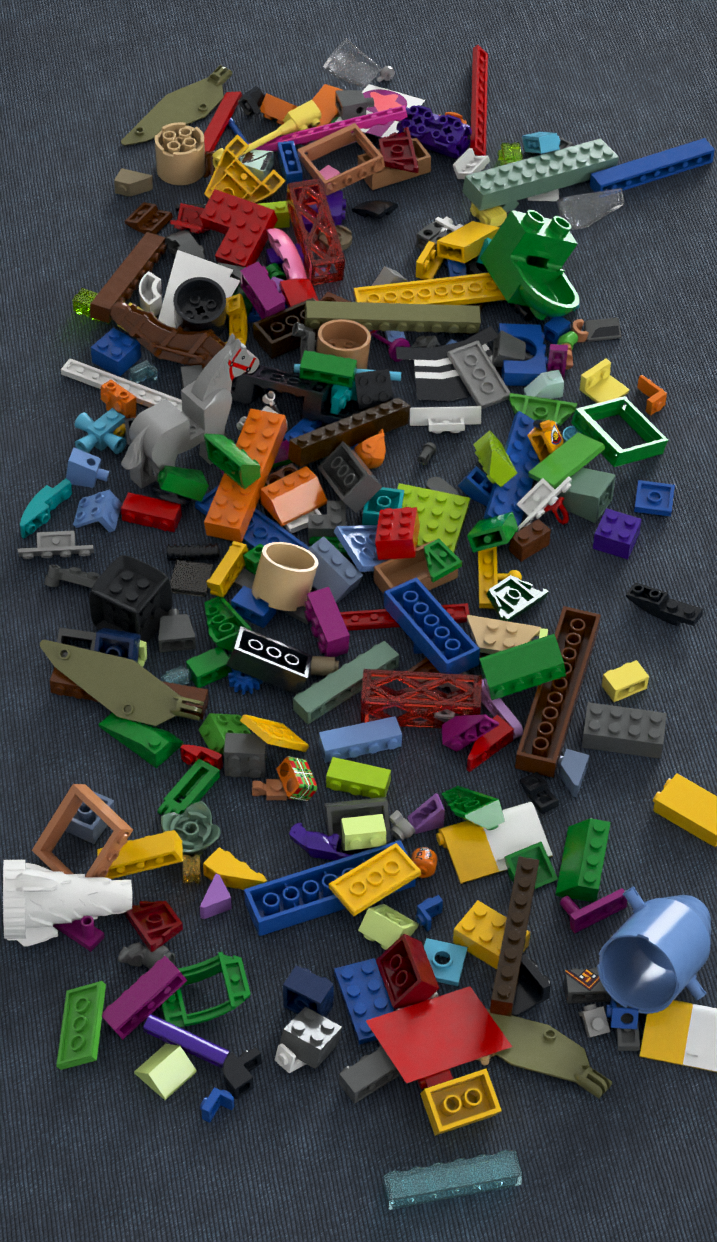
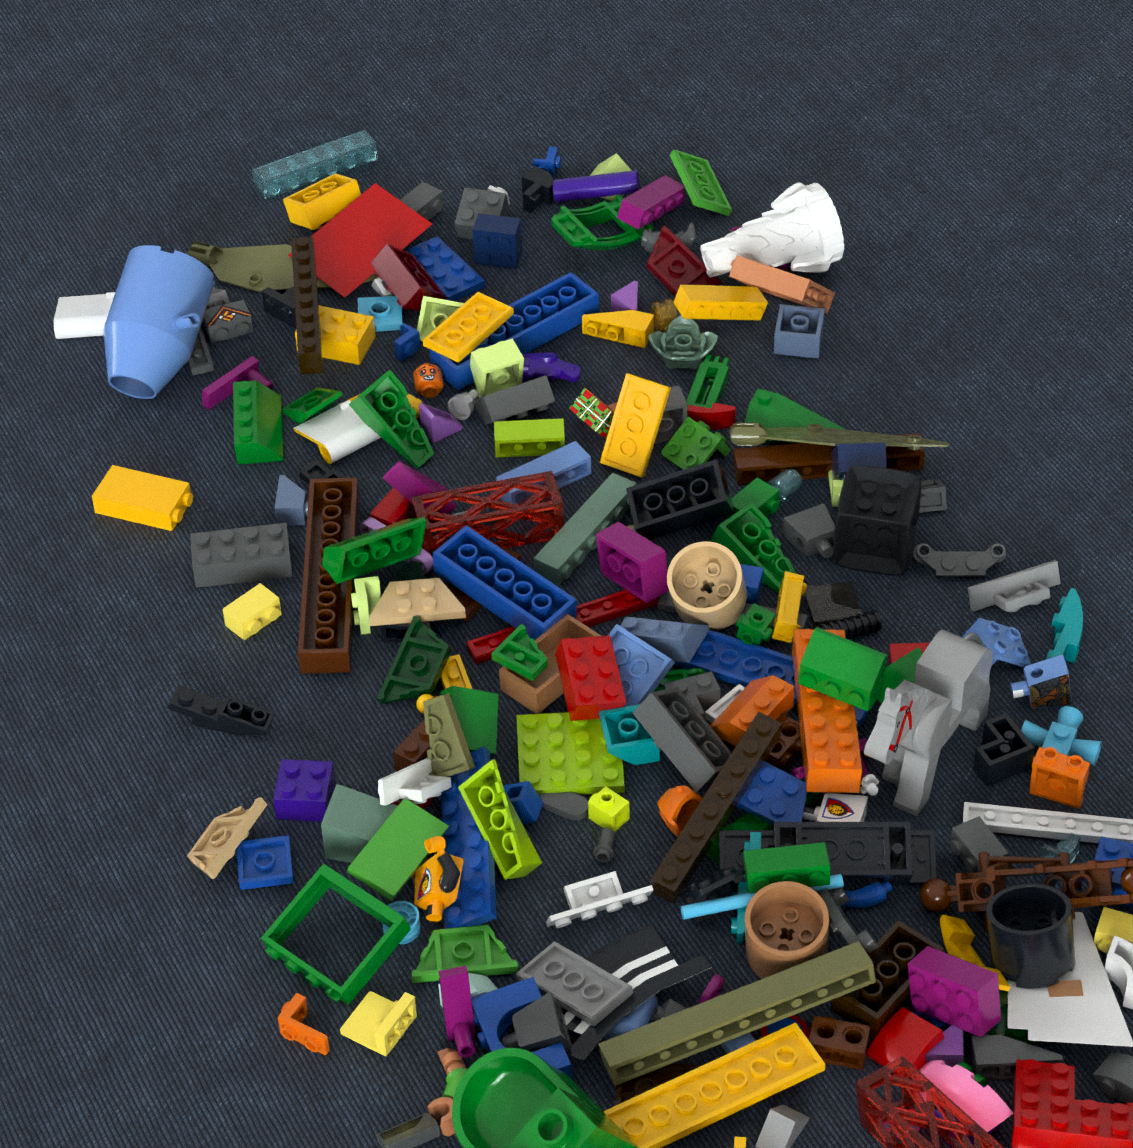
camera: 165 degrees right, 5 degrees down
(415, 471) = (608, 809): none -> neon yellow brick
(513, 505) = (447, 742): none -> olive wing
(680, 511) = (223, 837): none -> tan wing

